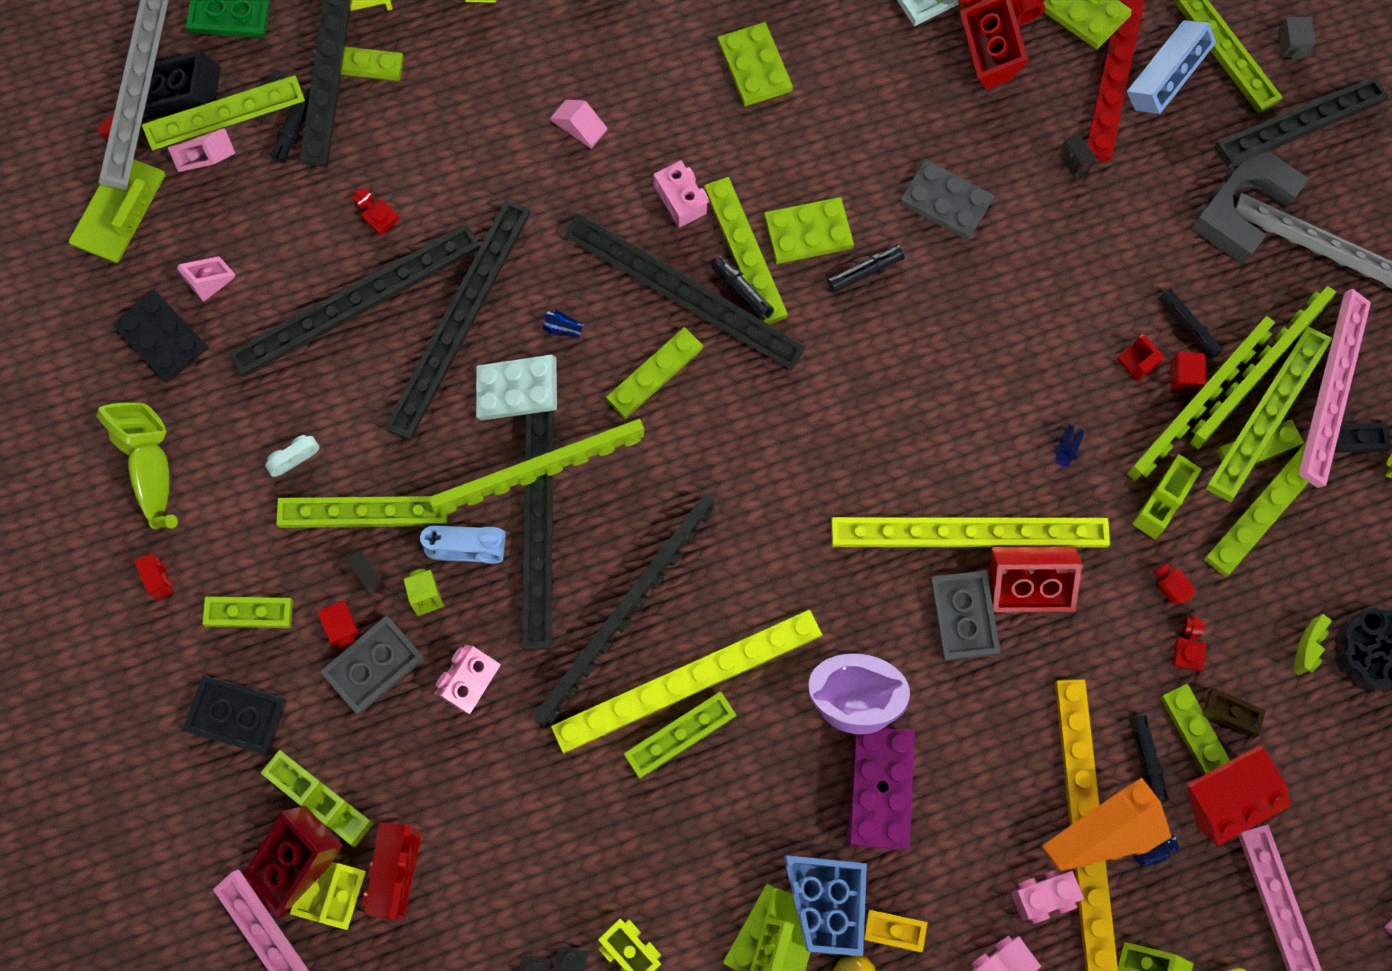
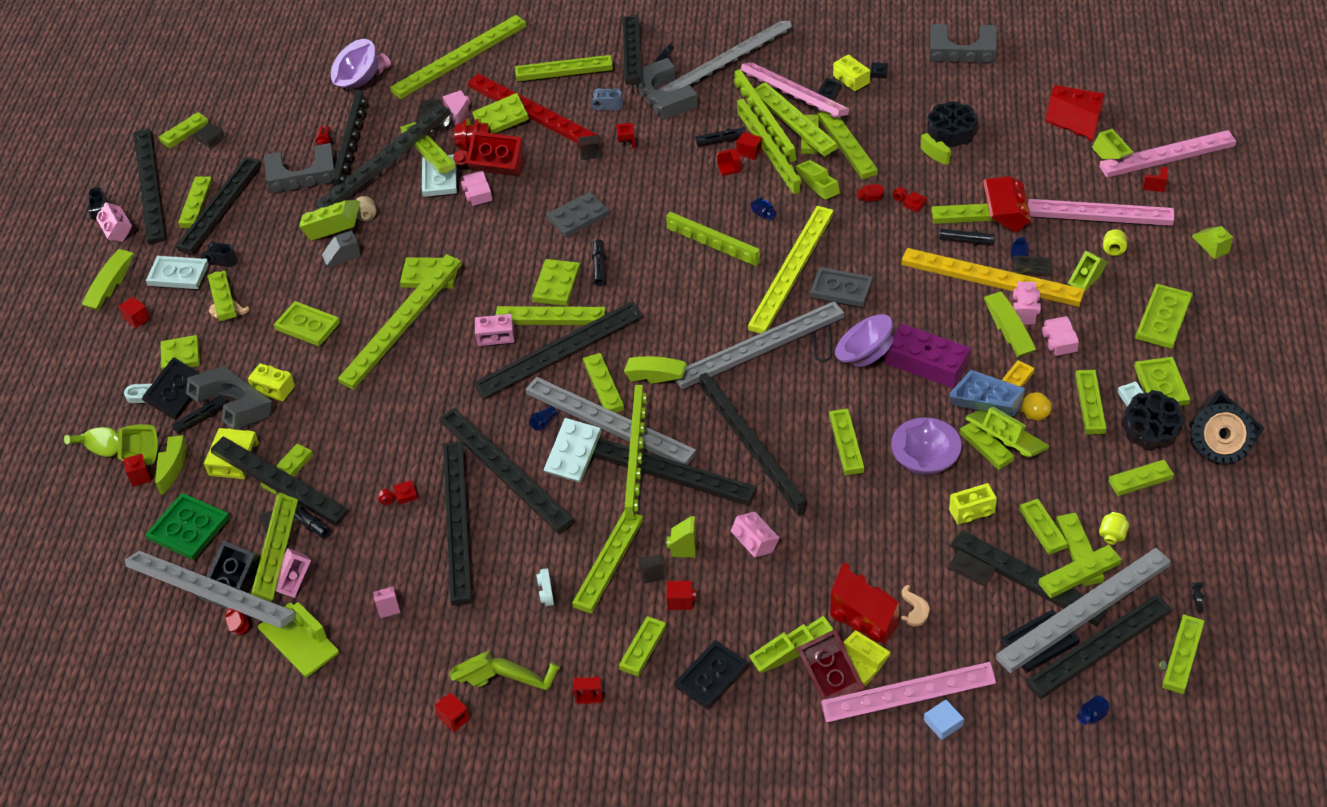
camera: 55 degrees left, 25 degrees down
(72, 431) = (452, 712): none -> red brick
(160, 336) = (410, 642): black plate -> none
(372, 665) = (717, 587): dark grey plate -> none
(438, 943) = (921, 608): none -> light nougat piece
(464, 543) = (662, 510): light blue piece -> none
(579, 121) = (408, 367): bright pink slope -> none
(590, 410) = (608, 420): none -> light grey plate
(650, 71) = (399, 322): none -> lime plate
(686, 681) = (813, 432): neon yellow plate -> none
(697, 429) = (654, 369): none -> lime slope
(708, 849) = (926, 445): none -> medium lavender piece
(735, 281) = (568, 323): black pin -> none
(807, 547) = (761, 343): none -> light grey plate
(869, 636) = (830, 345): none -> black piece
(930, 47) = (477, 188): none -> bright pink brick
(974, 411) = (713, 238): none -> lime plate
(995, 885) = (1010, 324): none -> lime slope
(1034, 579) = (836, 247): red slope -> none
(1117, 828) = (1002, 257): orange wedge -> none
(1125, 192) = (625, 132): none -> red panel
(1132, 882) = (1032, 265): none -> clear smoke plate
(1171, 66) = (562, 91): light blue brick -> none
(1186, 131) = (608, 98): none -> sand blue piece
(1234, 713) = (958, 192): dark brown plate -> none
(1296, 37) = (578, 38): dark grey brick -> none
(1314, 172) = (665, 53): none -> black plate

